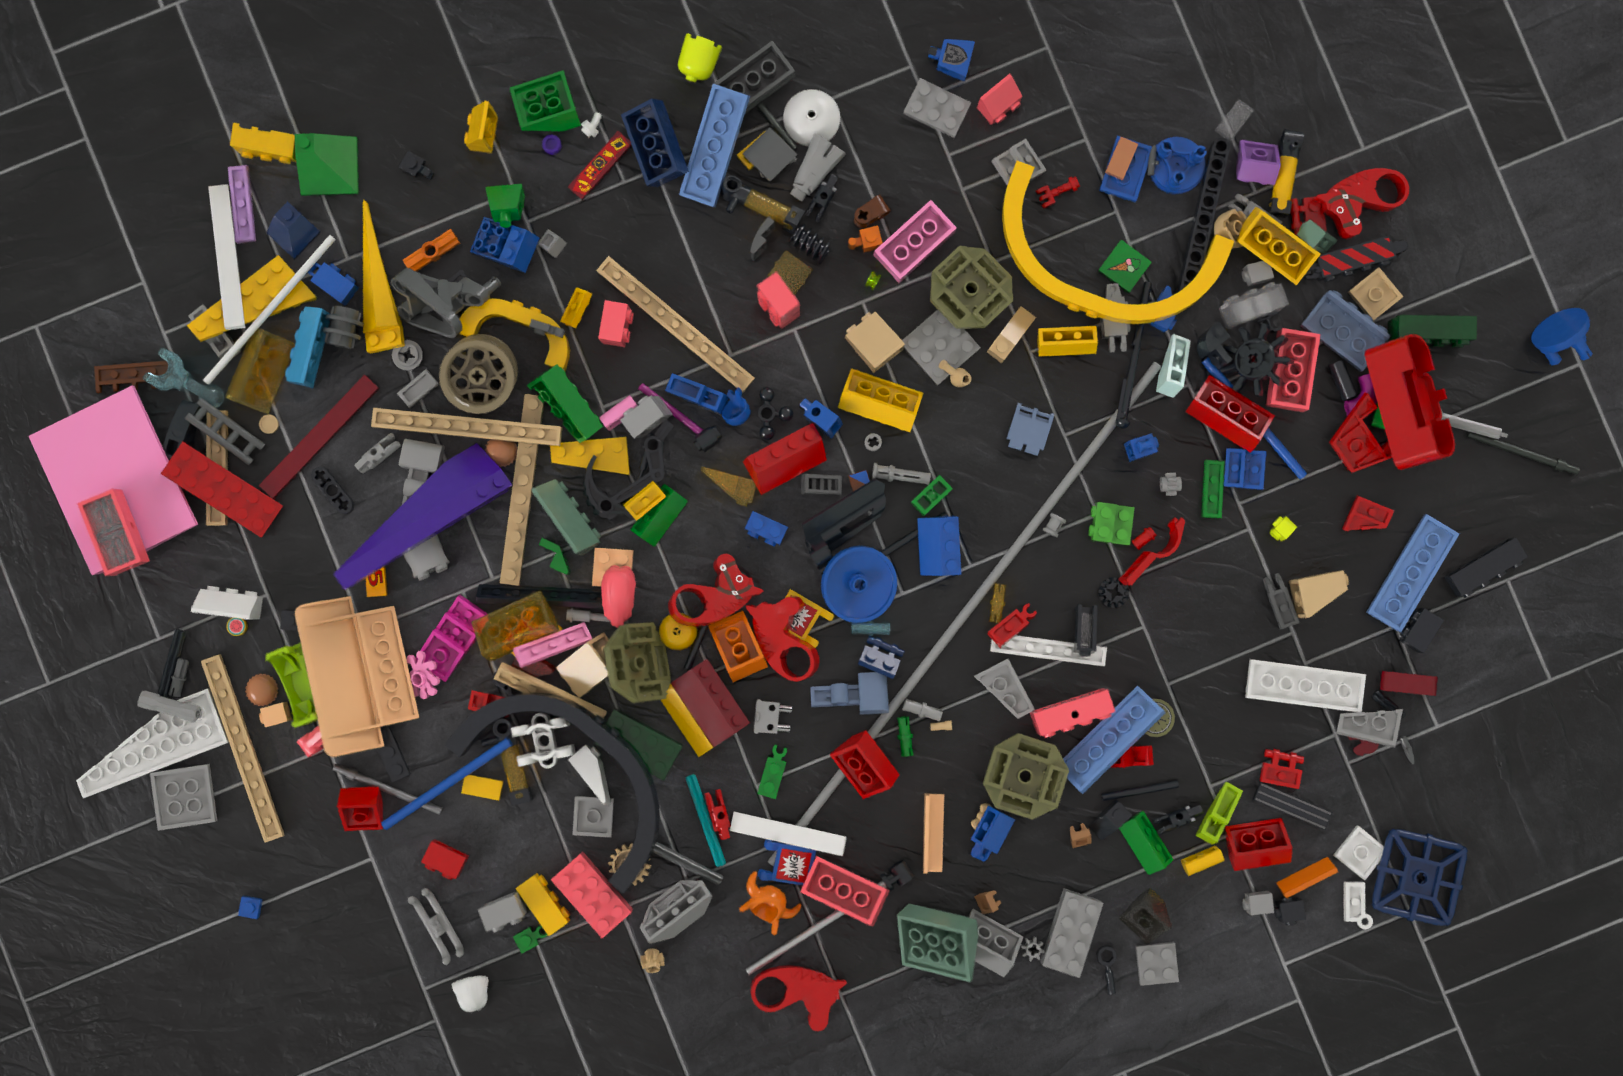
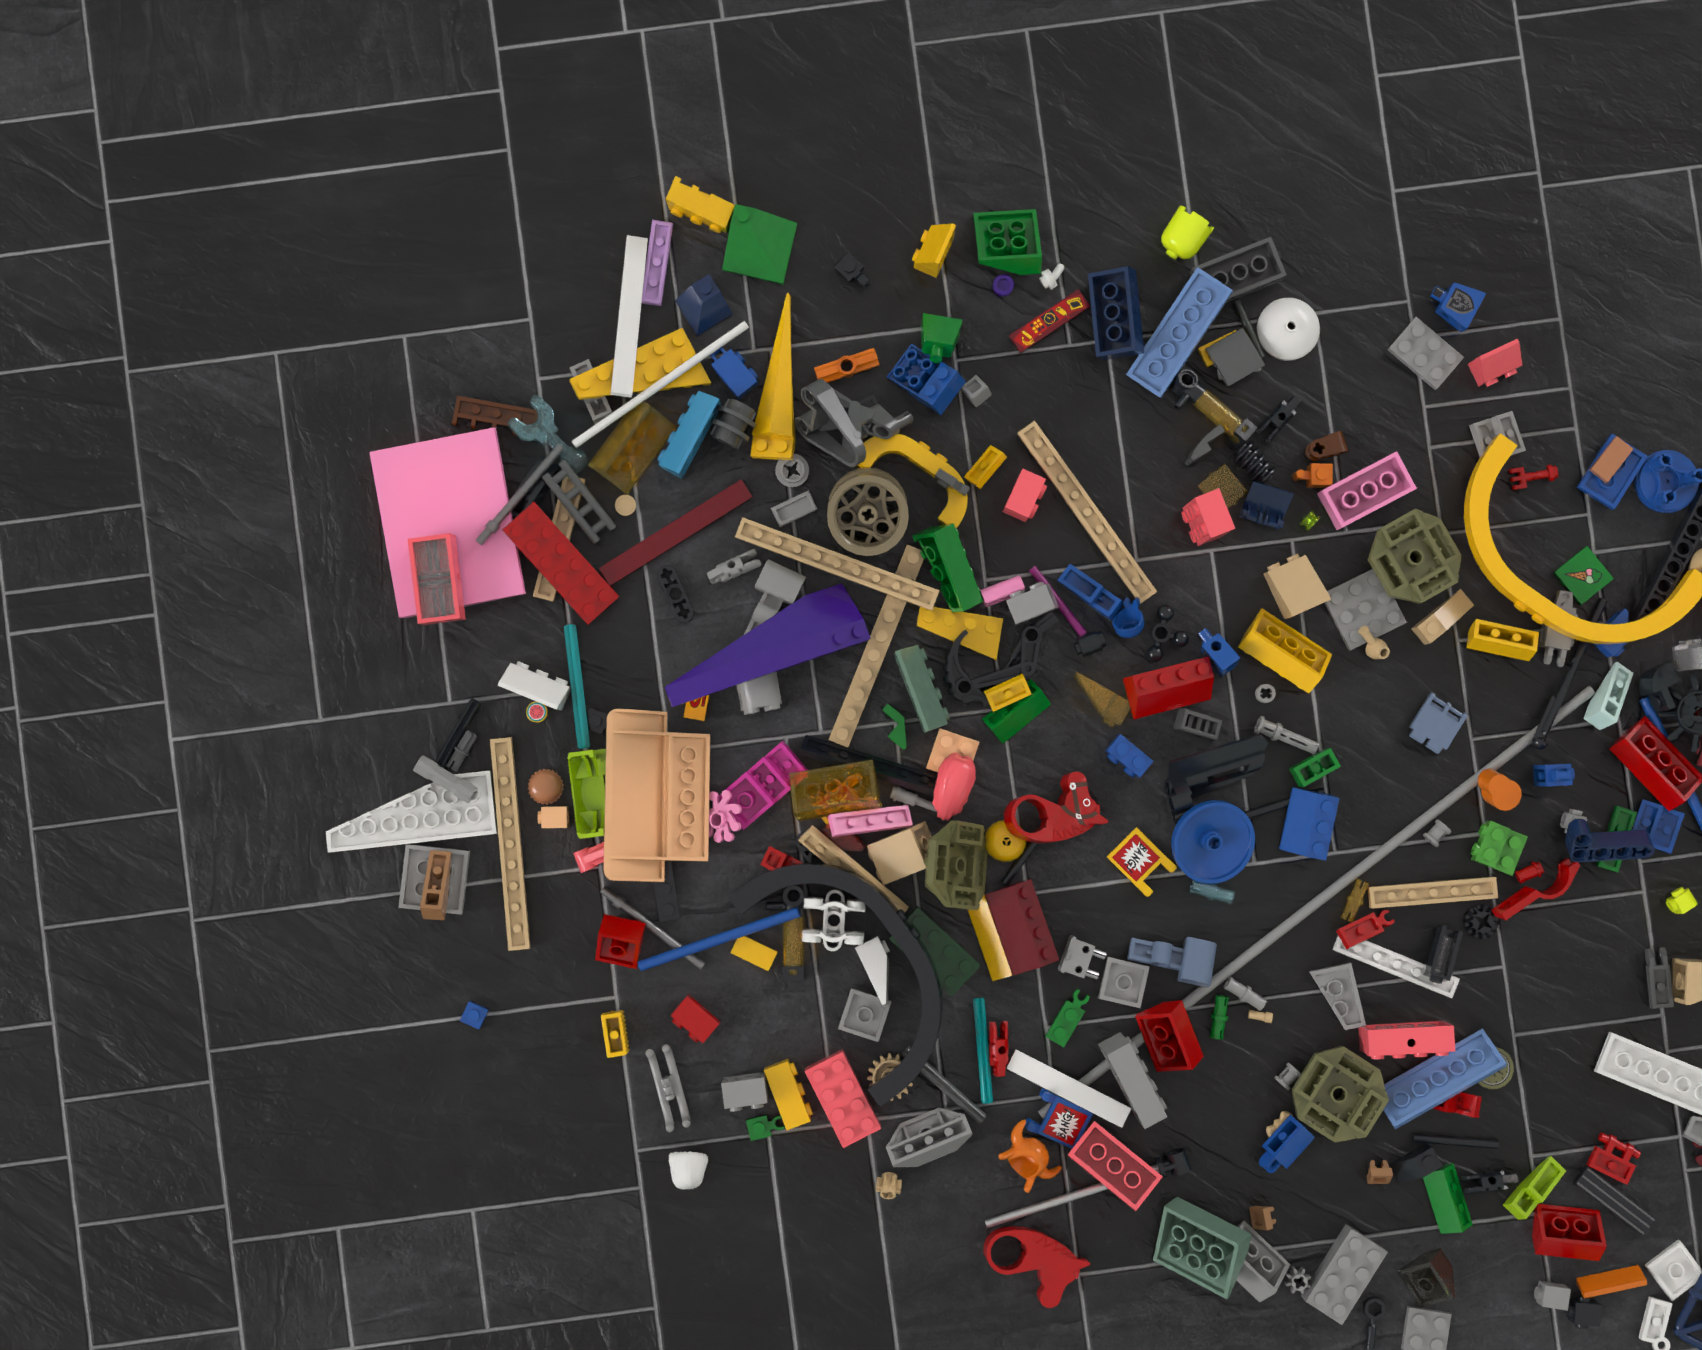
camera: 15 degrees right, 0 degrees up
(151, 472) = (493, 525): none -> flat silver bar
(184, 802) = (436, 885): none -> medium nougat slope
(265, 594) = (576, 685): none -> teal axle
(376, 890) = (615, 1033): none -> yellow brick
(502, 452) = (866, 599): nougat hat -> none
(738, 646) = (1065, 874): orange slope -> none
(772, 633) = (1106, 873): red animal -> none
(813, 728) = (1123, 982): none -> light grey plate
(818, 162) = (1285, 378): light grey piece -> none
(830, 277) = (1266, 505): none -> dark blue hinge
(837, 808) = (1133, 1079): none -> light grey brick
(858, 479) = (1239, 730): tile -> none
(879, 661) = (1212, 929): dark blue plate -> none
(933, 832) = (1222, 1128): light nougat panel -> none
(978, 772) = (1288, 1076): none -> light grey bush
(1064, 578) = (1432, 892): none -> tan plate
(1098, 473) = (1499, 790): none -> orange piece
(1152, 162) = (1643, 471): dark grey helmet -> none
(1202, 497) = (1606, 846): none -> dark blue beam
(1202, 860) = (1503, 1233): yellow brick -> none

